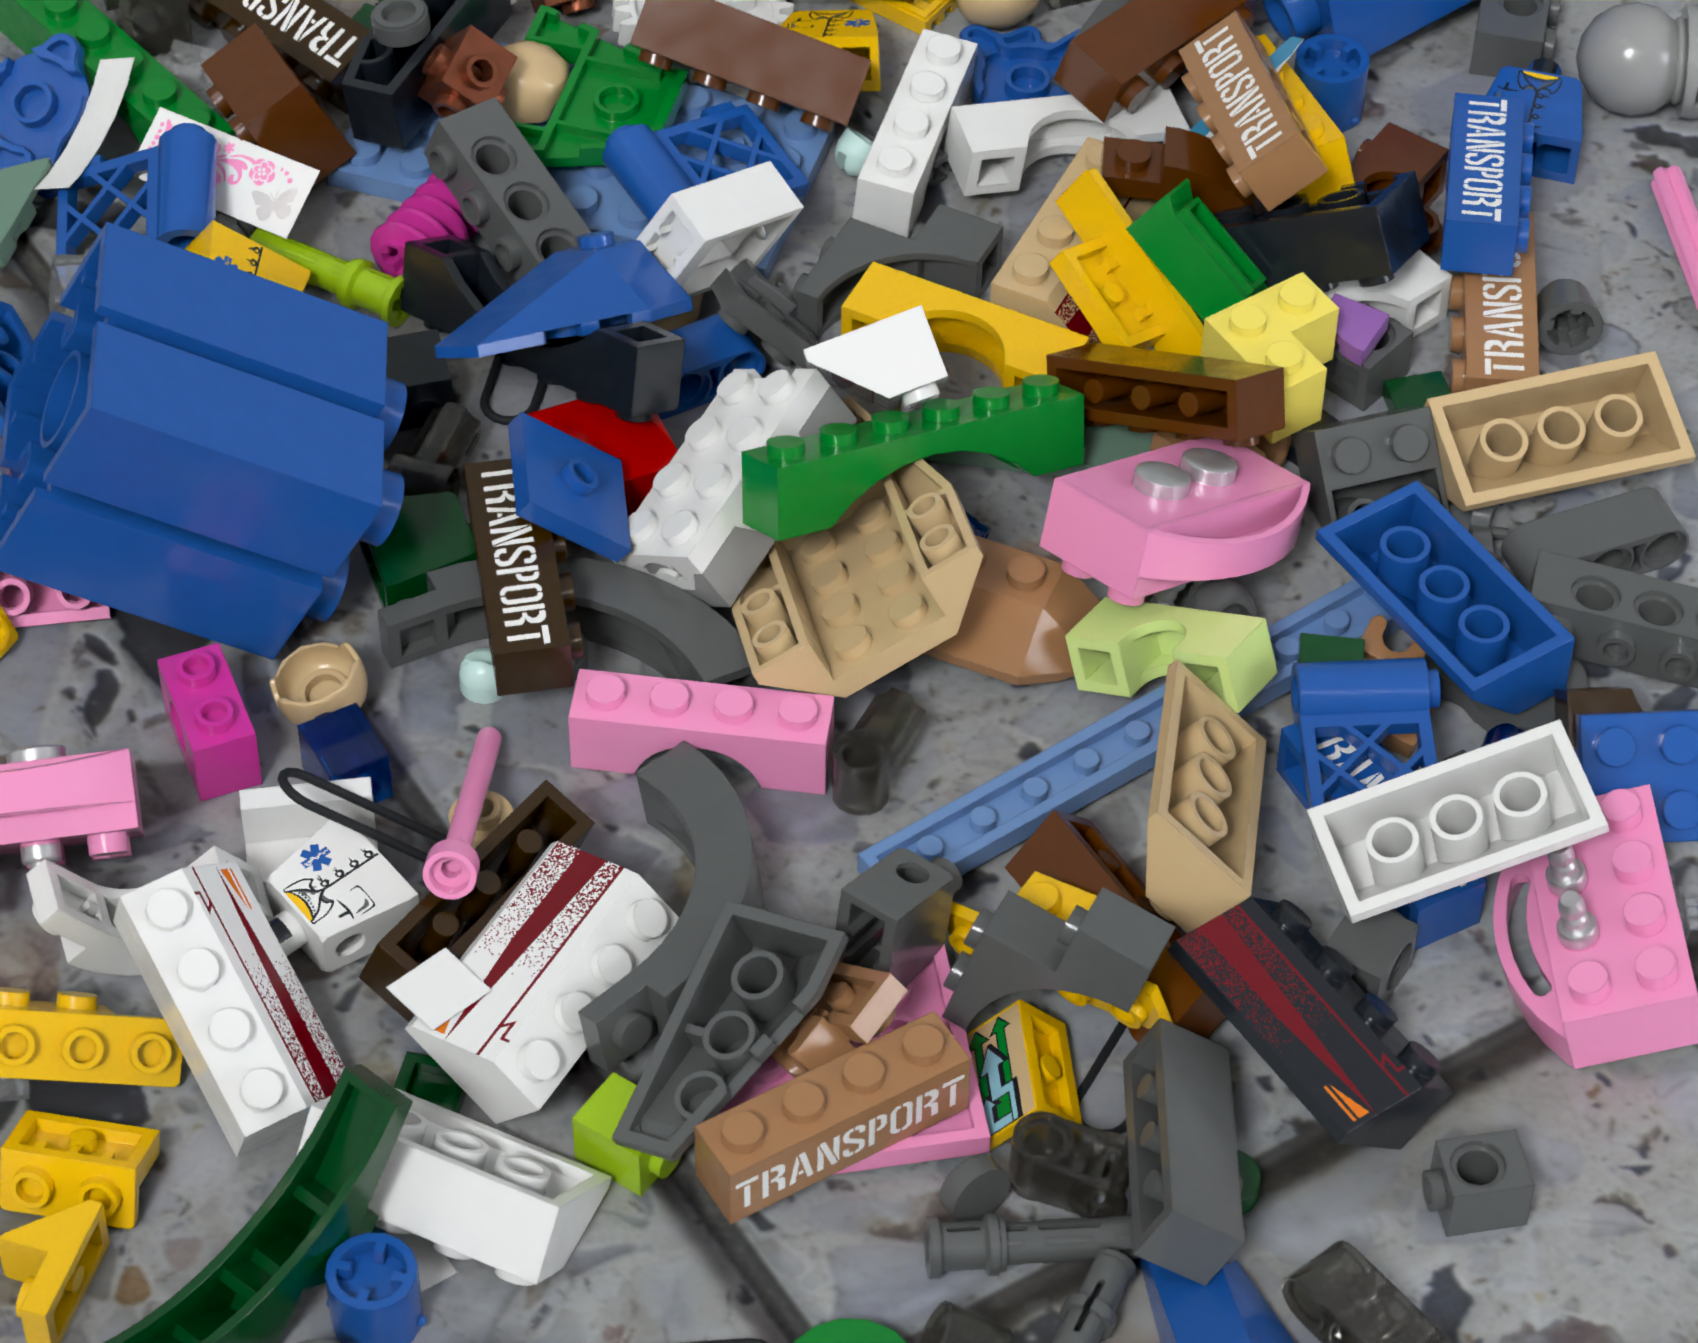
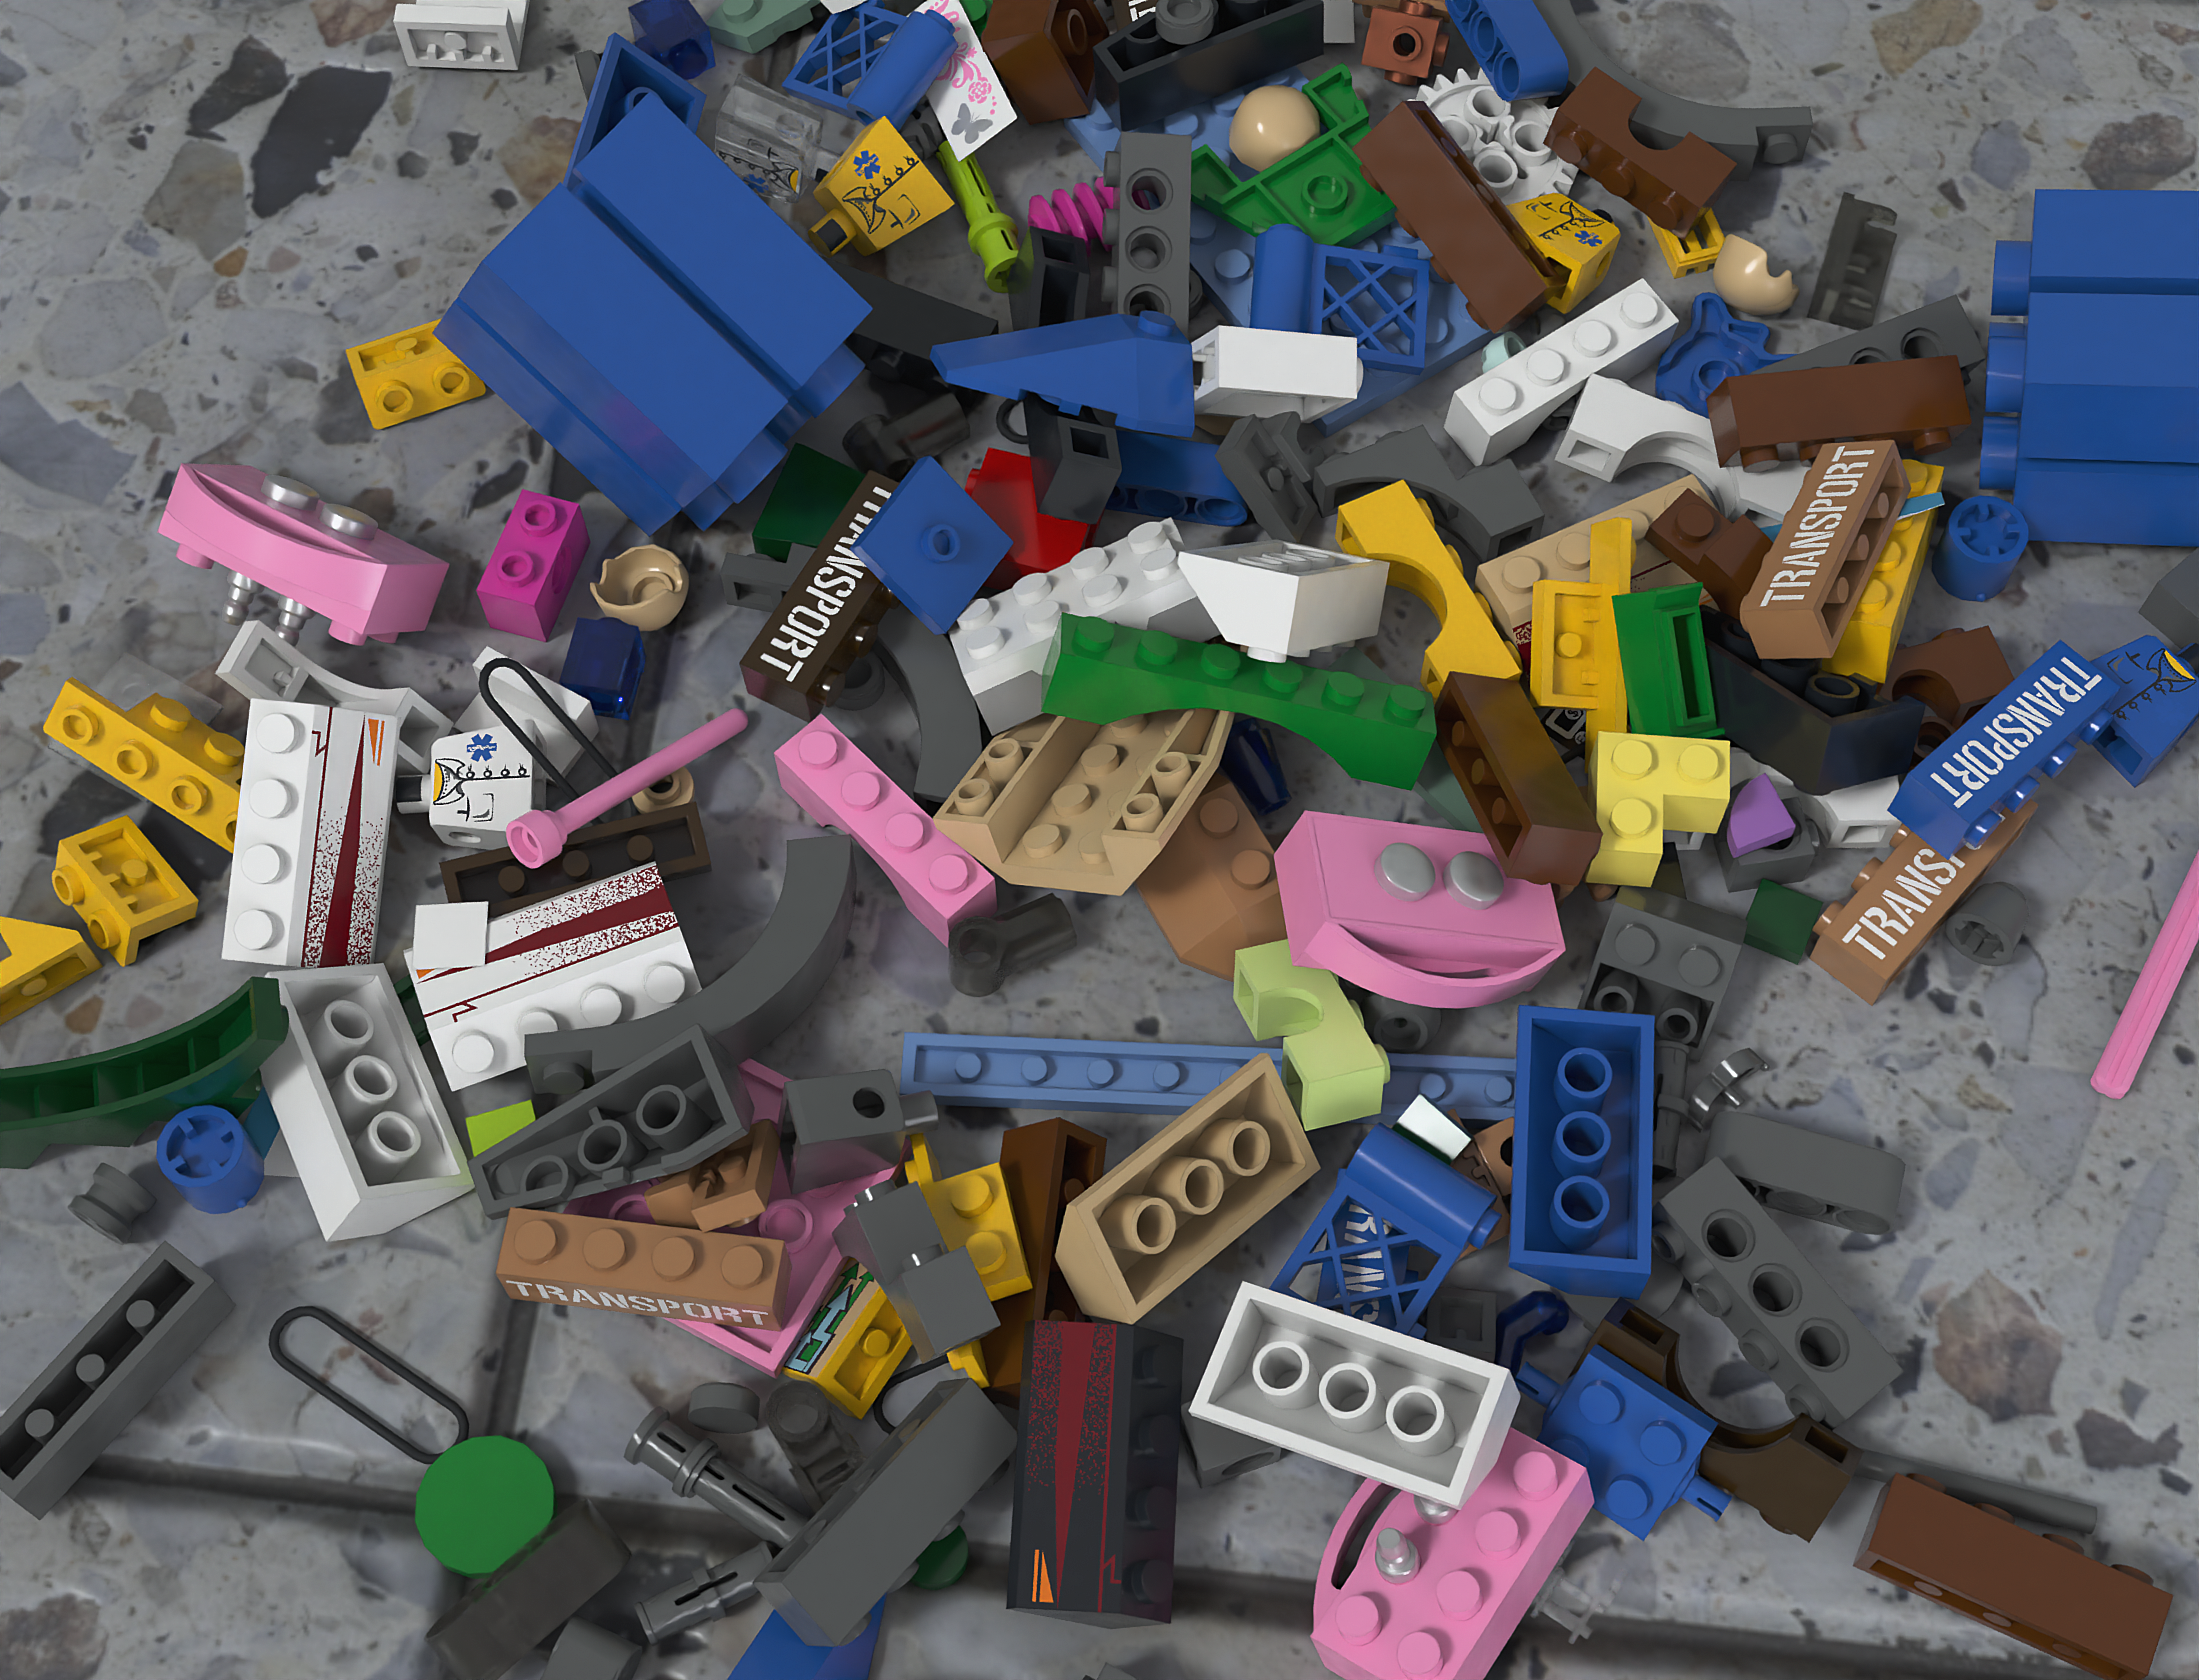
camera: 40 degrees right, 15 degrees up
(466, 72) = (1222, 100): copper brick -> none
(1558, 431) = (1854, 1045): tan slope -> none

